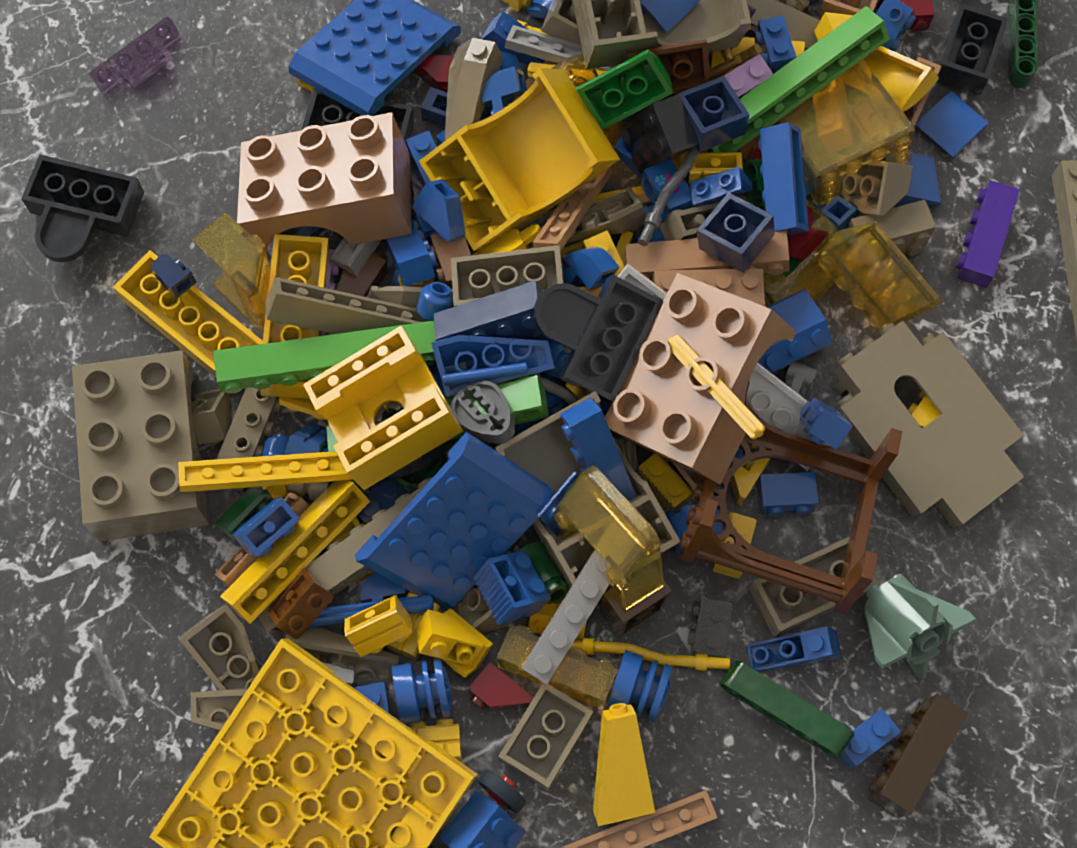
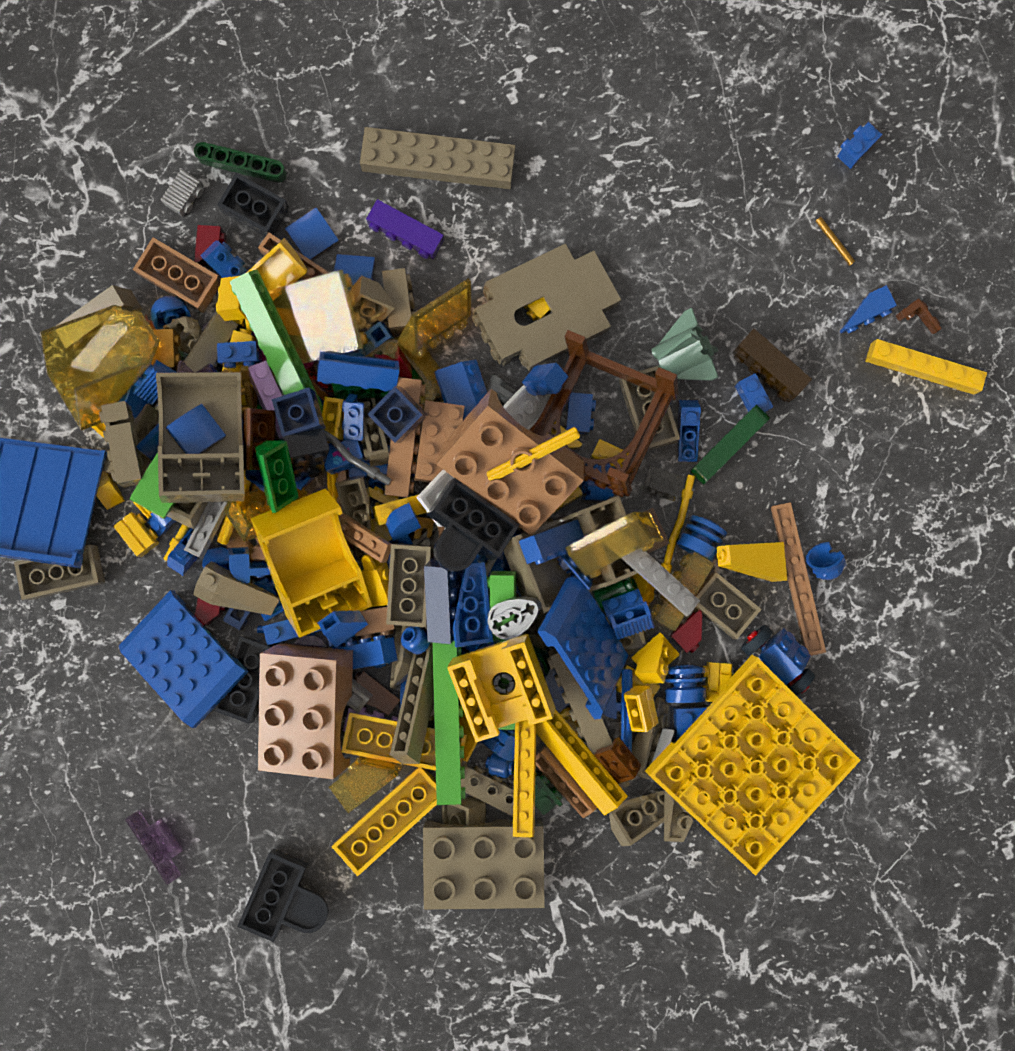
camera: 85 degrees left, 15 degrees up
(173, 275) = (357, 831): dark blue brick -> none
(266, 527) = (564, 779): blue brick -> none
(484, 374) = (483, 599): blue bar -> none

